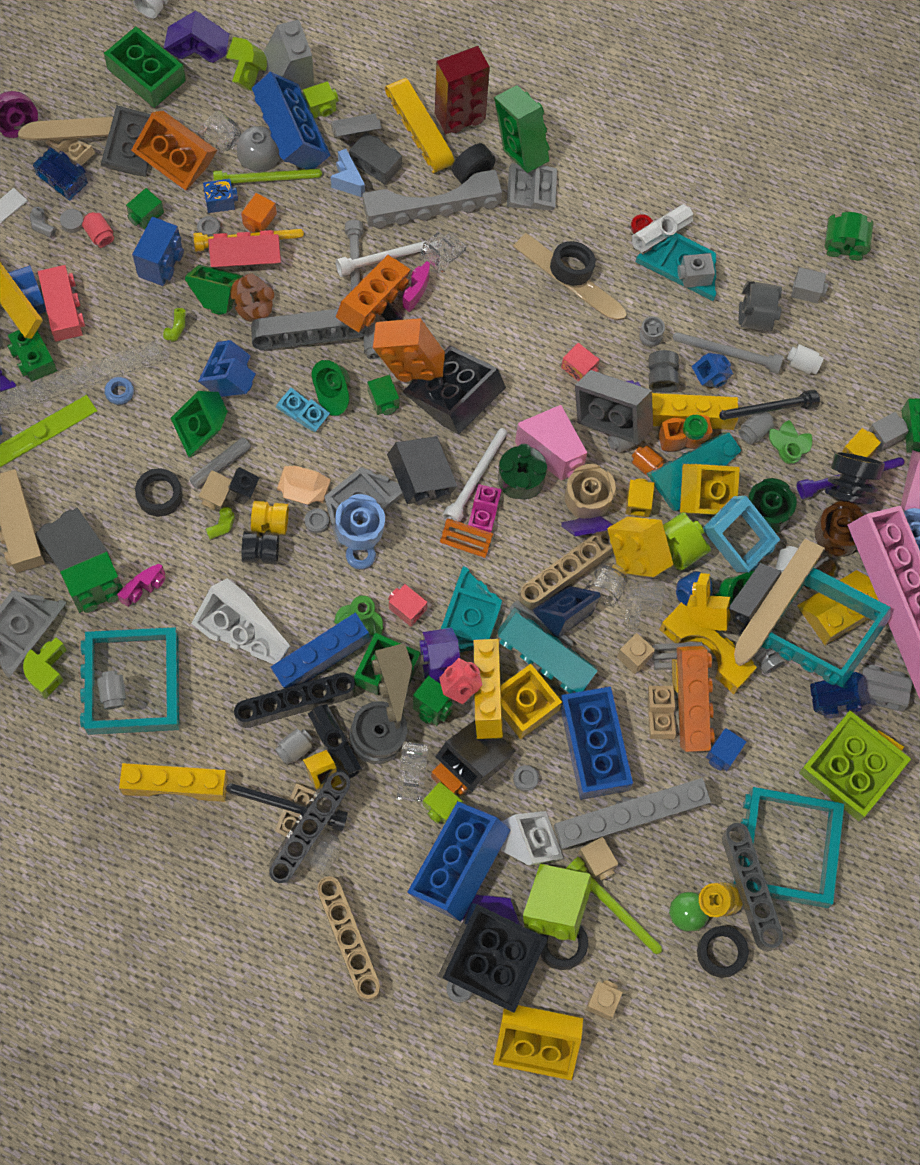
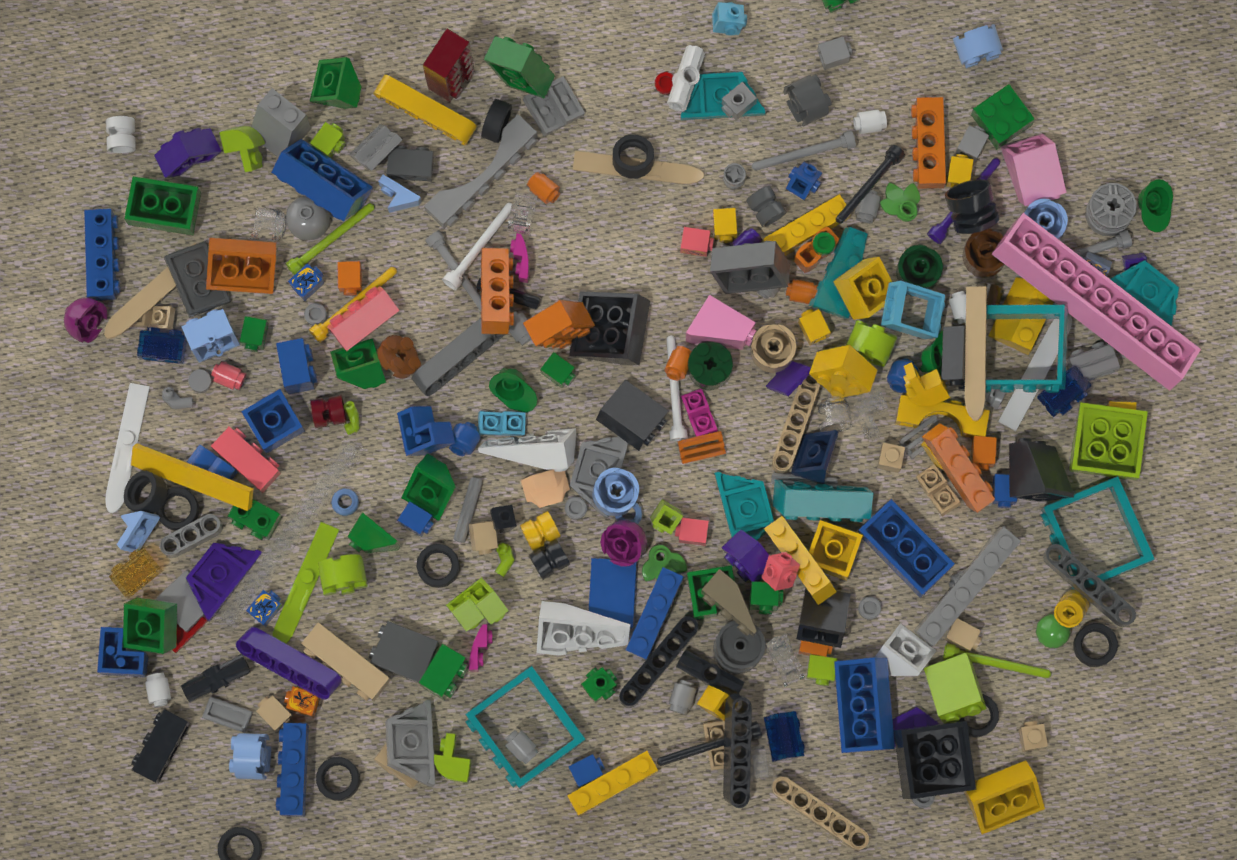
camera: 25 degrees left, 10 degrees up
(66, 75) = (100, 254): none -> blue brick
(68, 444) = (342, 574): none -> lime brick
(105, 184) = (210, 334): none -> light blue brick
(105, 285) = (273, 421): none -> blue brick
(116, 430) = (370, 537): none -> green slope
(157, 306) = (336, 411): none -> dark red wheel
(159, 753) = (587, 770): none -> blue brick
(165, 543) = (475, 604): none -> lime brick
(168, 441) = (416, 519): none -> blue brick
(226, 684) = (595, 692): none -> green brick
(259, 401) = (465, 438): none -> blue head
(300, 610) = (612, 590): none -> blue tile
(326, 455) = (546, 452): none -> white wedge
(337, 573) = (624, 542): none -> magenta cylinder
(359, 63) = (336, 84): none -> green slope
(364, 843) = (784, 736): none -> clear blue brick
(390, 575) = (666, 517): none -> lime brick
(477, 243) = (544, 188): none -> orange brick
(491, 452) = (678, 363): none -> orange brick
(617, 362) = (725, 224): none -> yellow brick
(727, 703) = (983, 452): none -> orange brick
(735, 201) = (728, 18): none -> medium azure brick
(766, 750) = (1037, 472): none -> black slope
(798, 678) = (1036, 370): none -> white piece
(868, 381) = (934, 109): none -> orange brick

